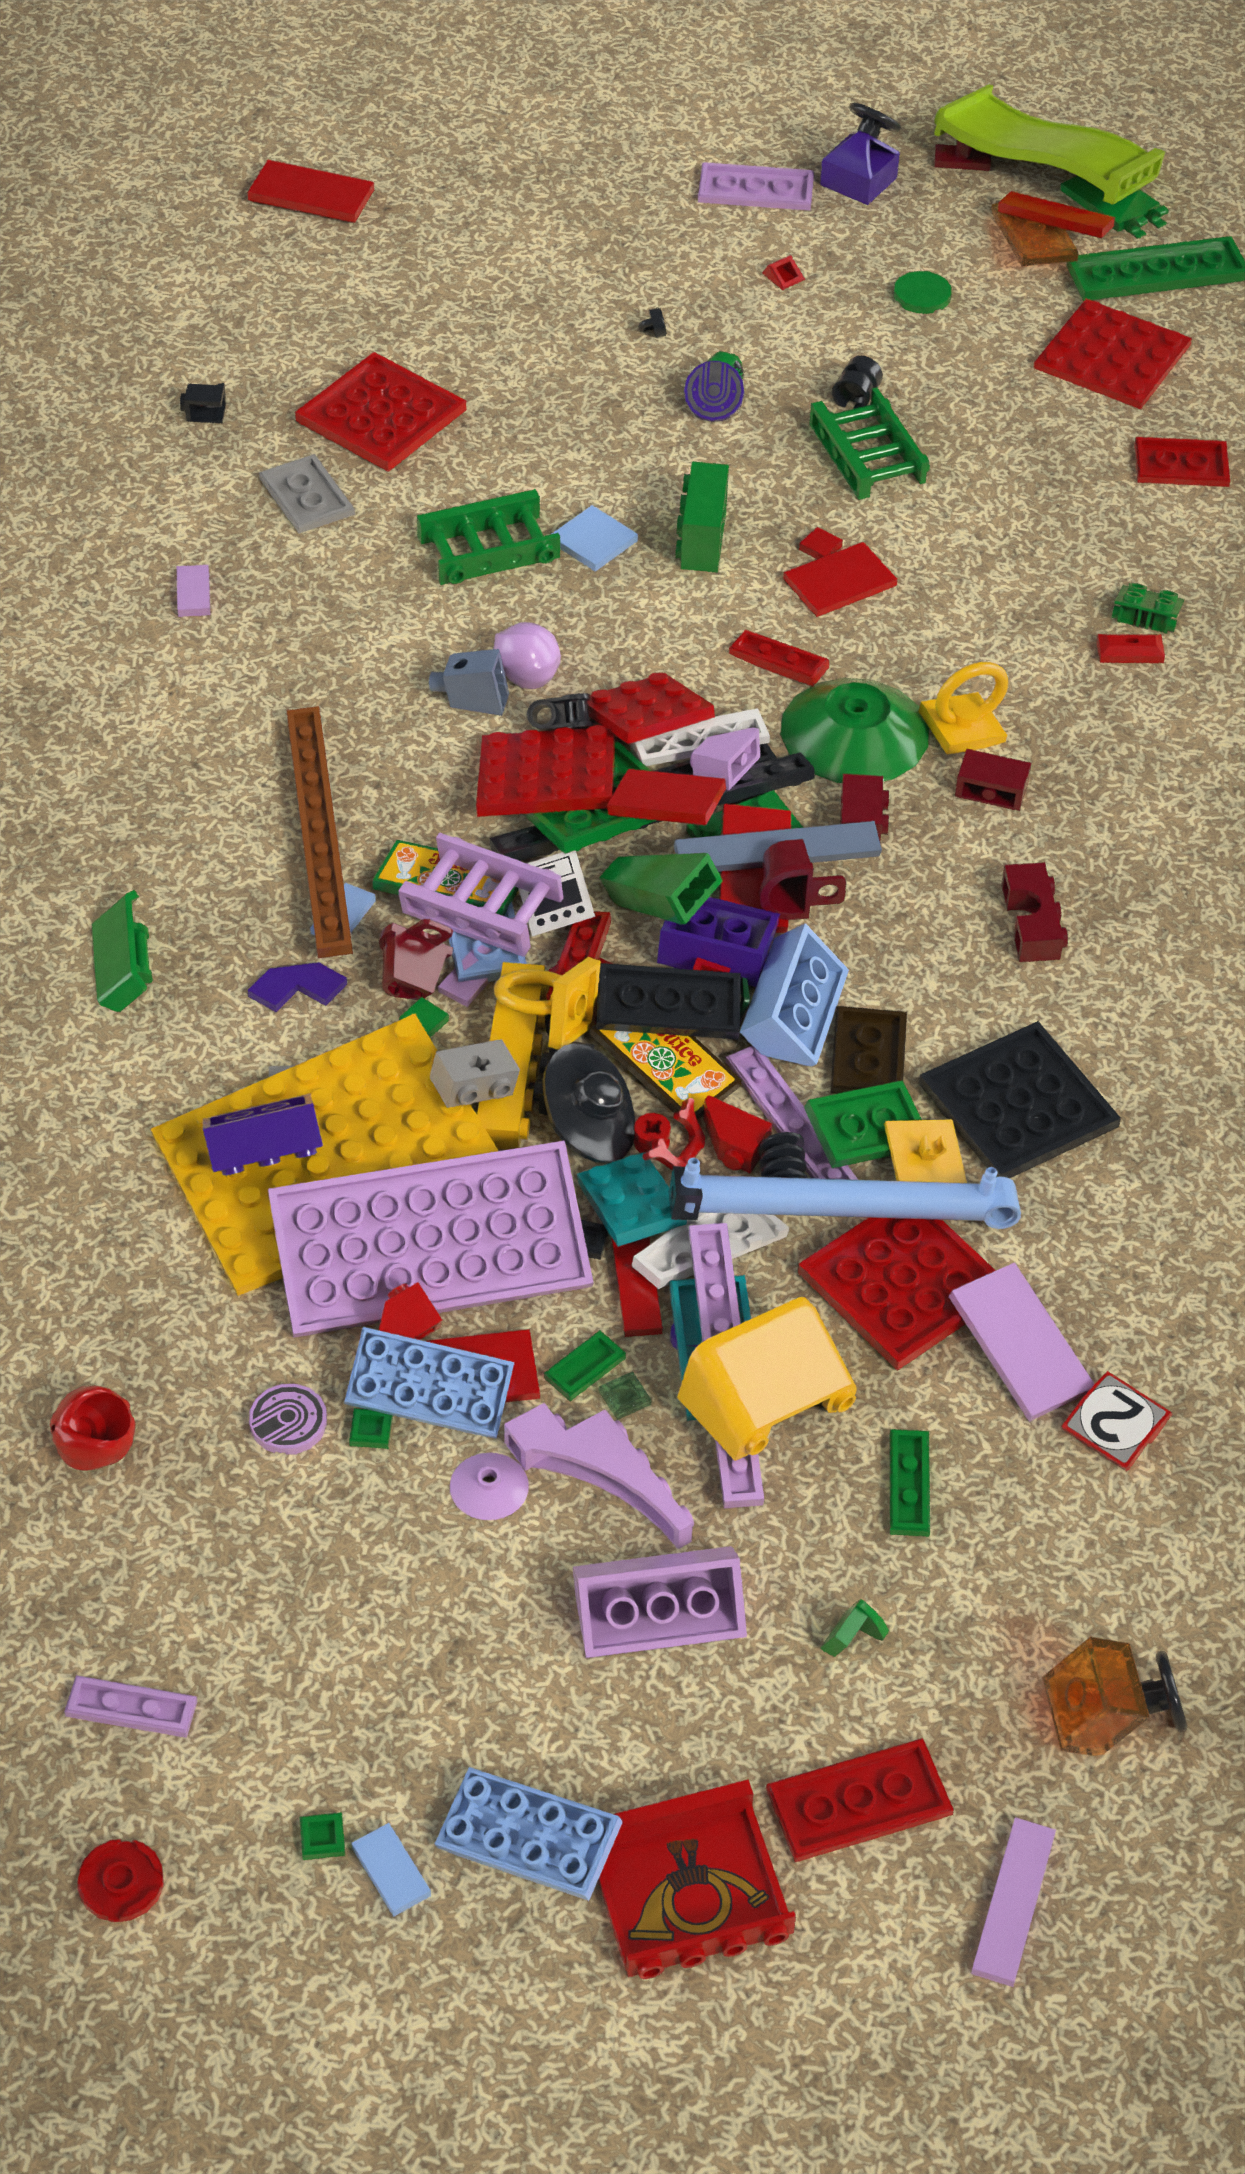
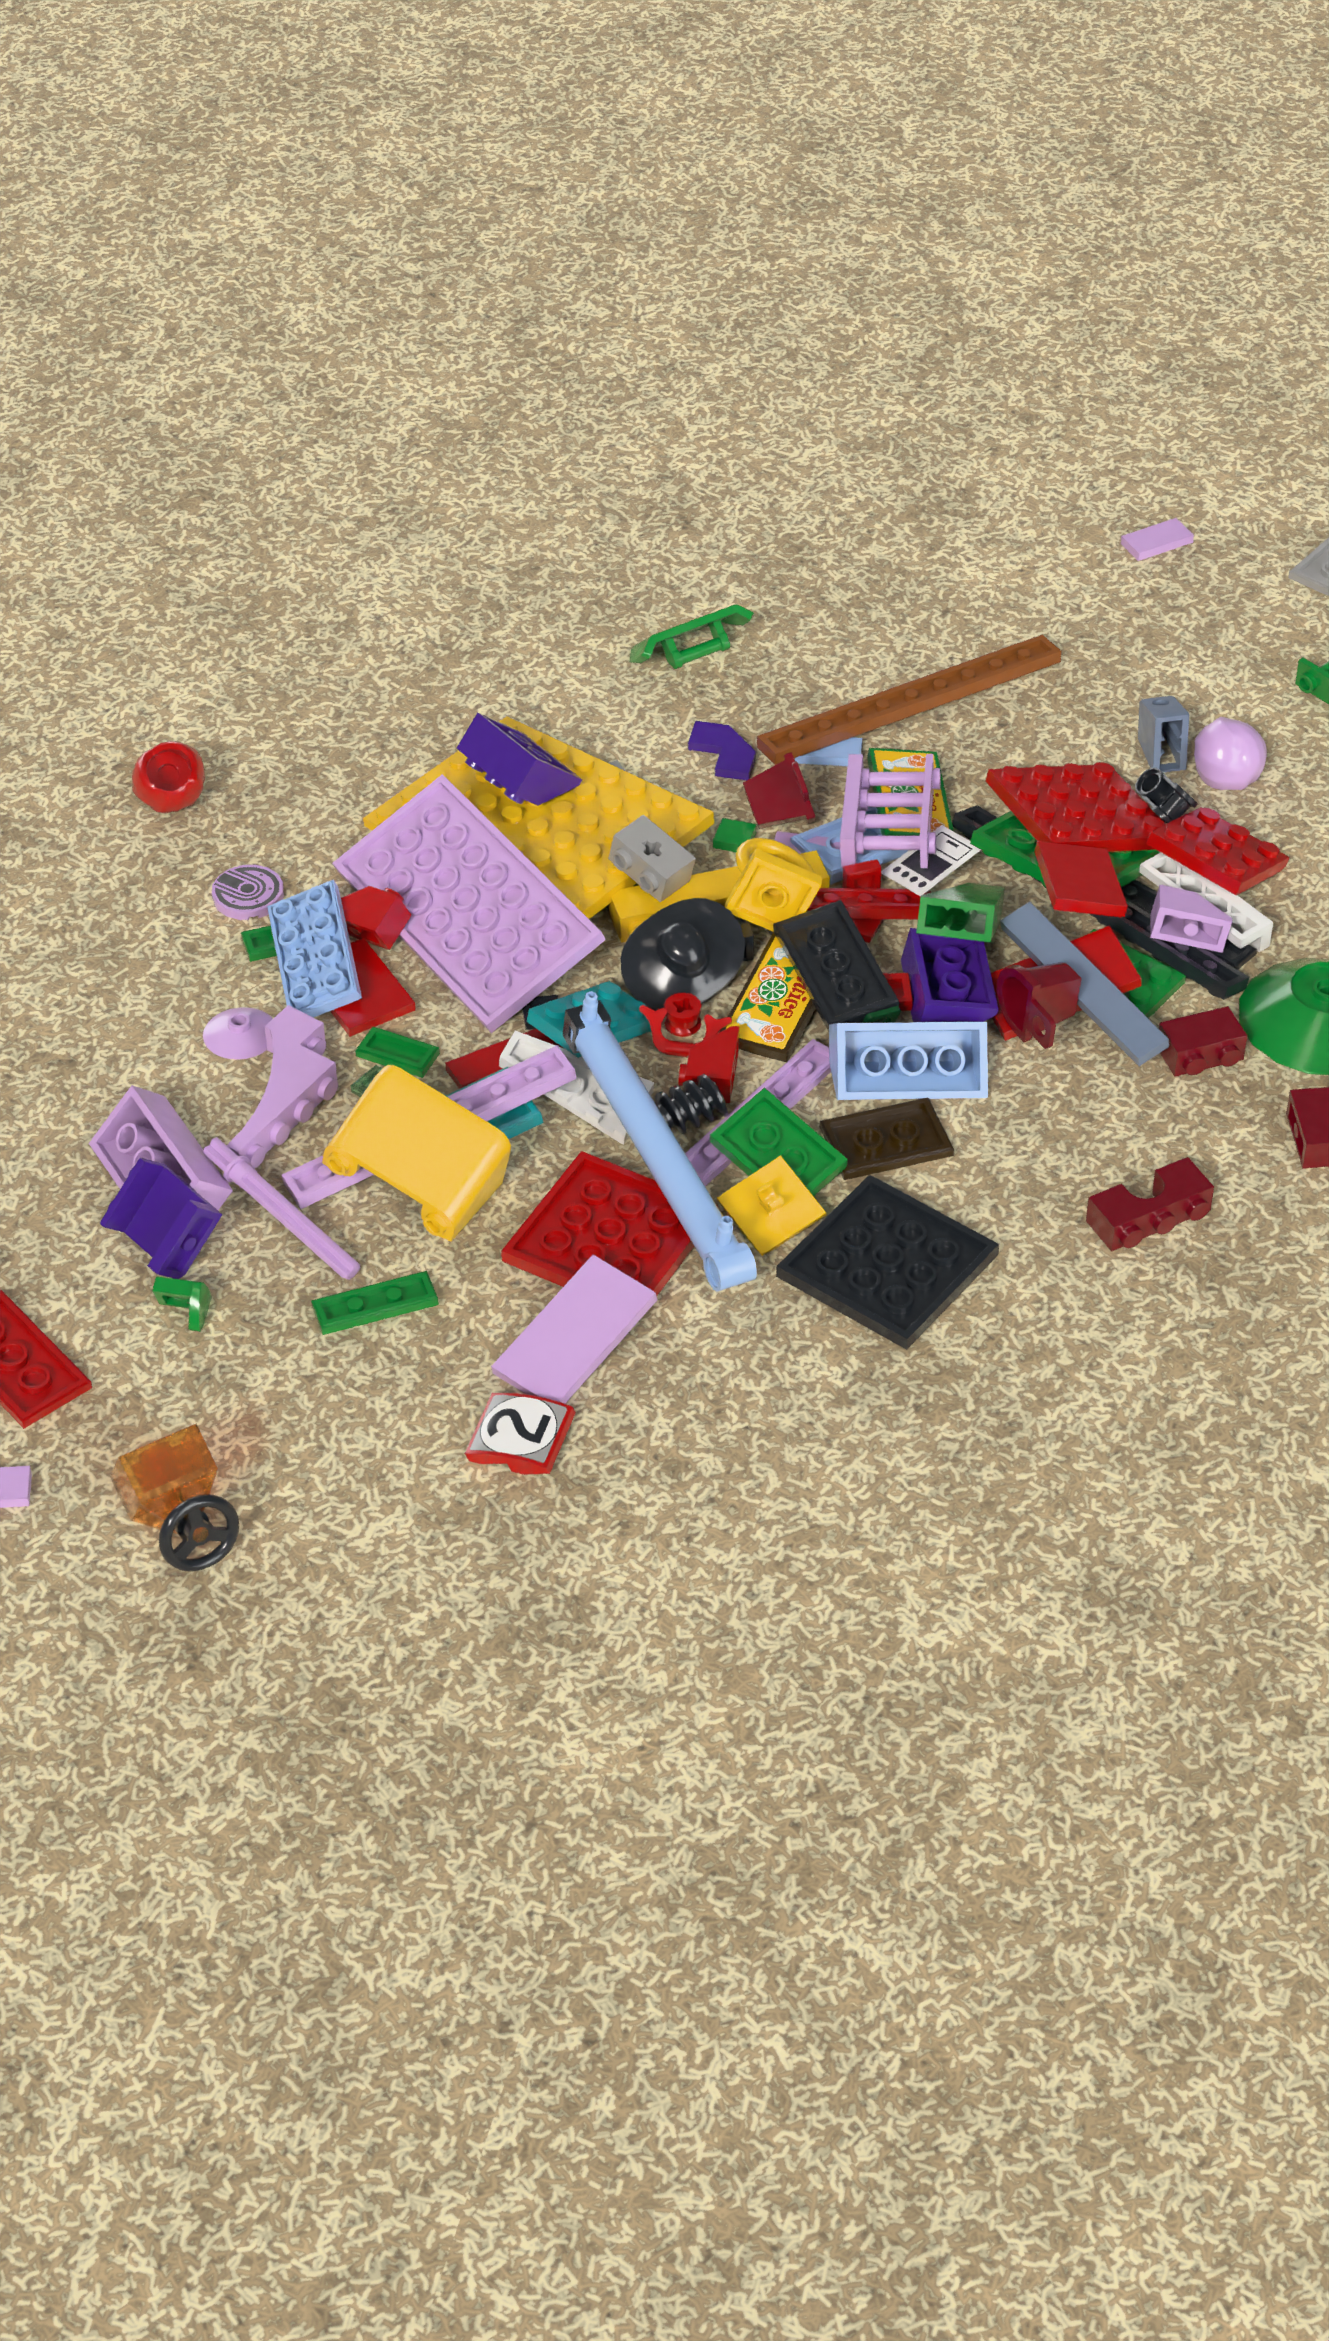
camera: 70 degrees right, 5 degrees down
(544, 946) = (862, 875): none -> red tile
(723, 1528) = (240, 1172): none -> lavender axle
(755, 1609) = (162, 1217): none -> dark purple panel

